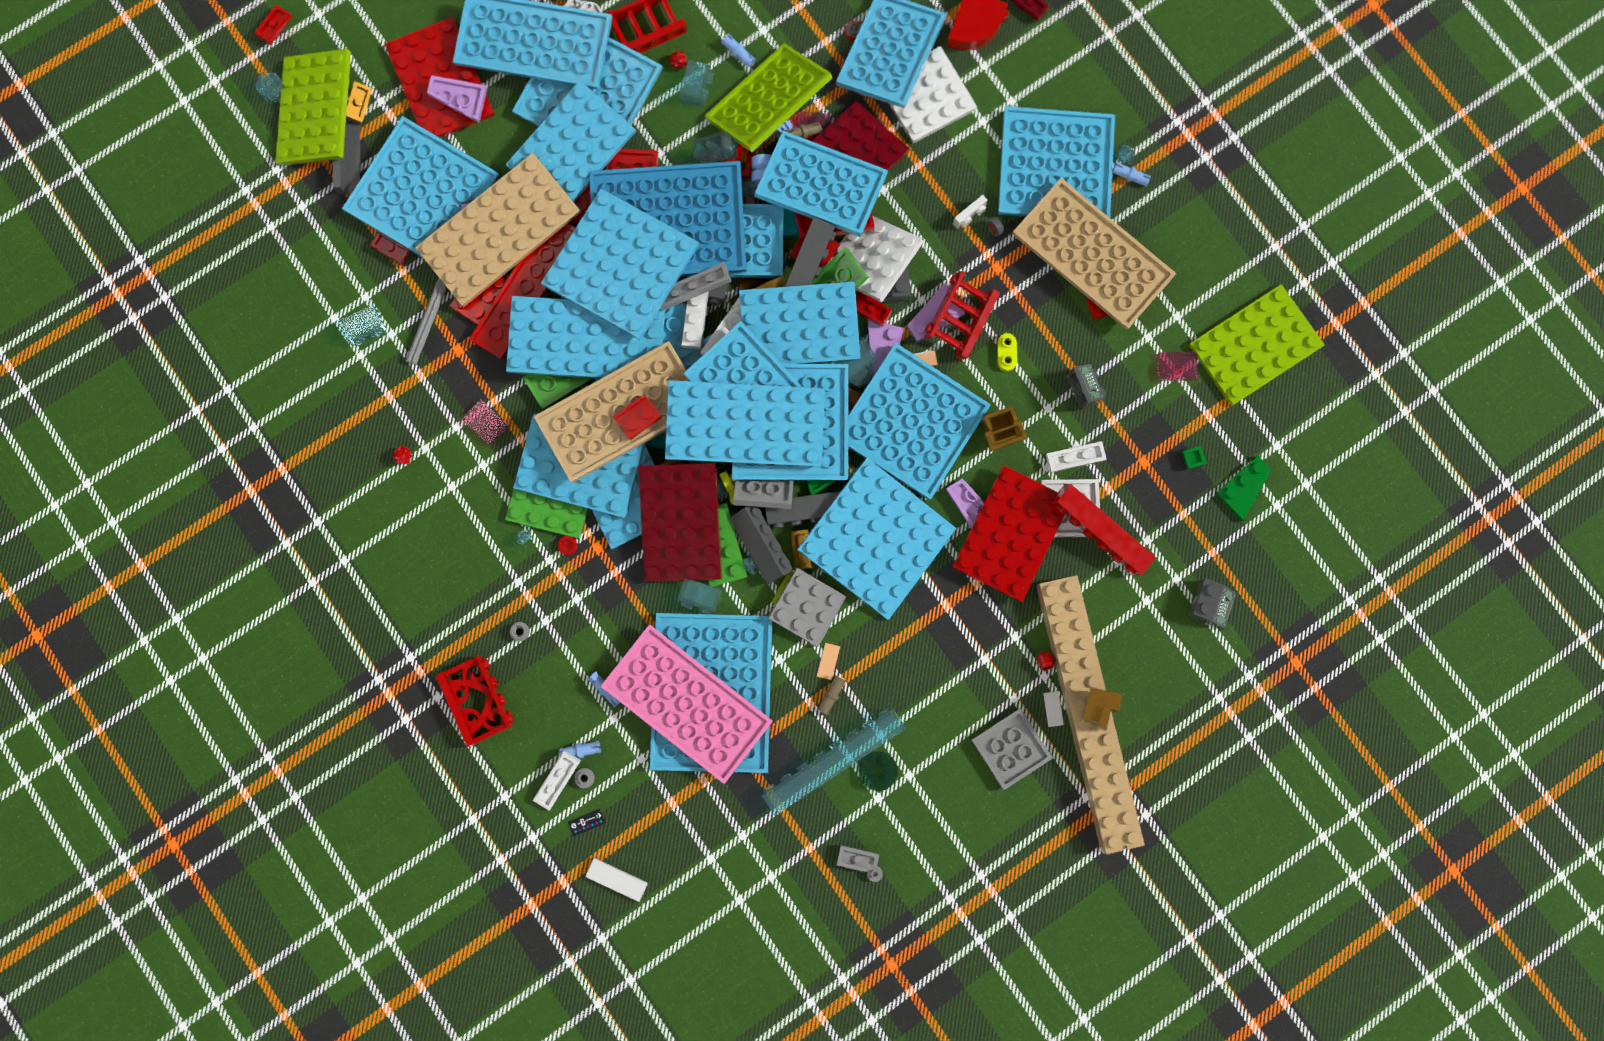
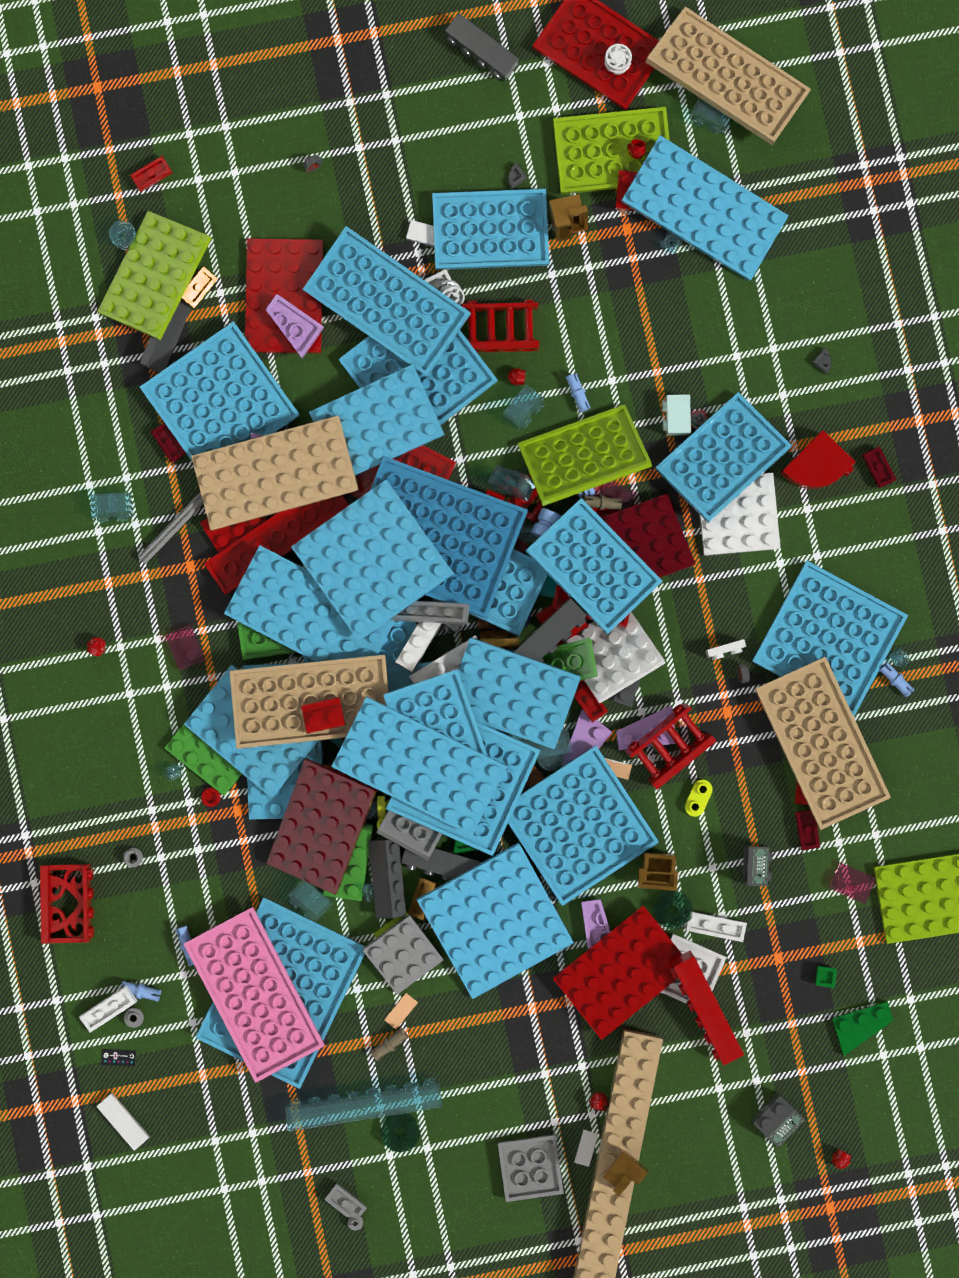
camera: 30 degrees right, 5 degrees up
(834, 32) = (677, 415): none -> light aqua brick
(1033, 447) = (663, 904): none -> clear green plate
(1116, 337) = (807, 830): none -> dark red plate
(1285, 613) = (841, 1159): none -> red plate

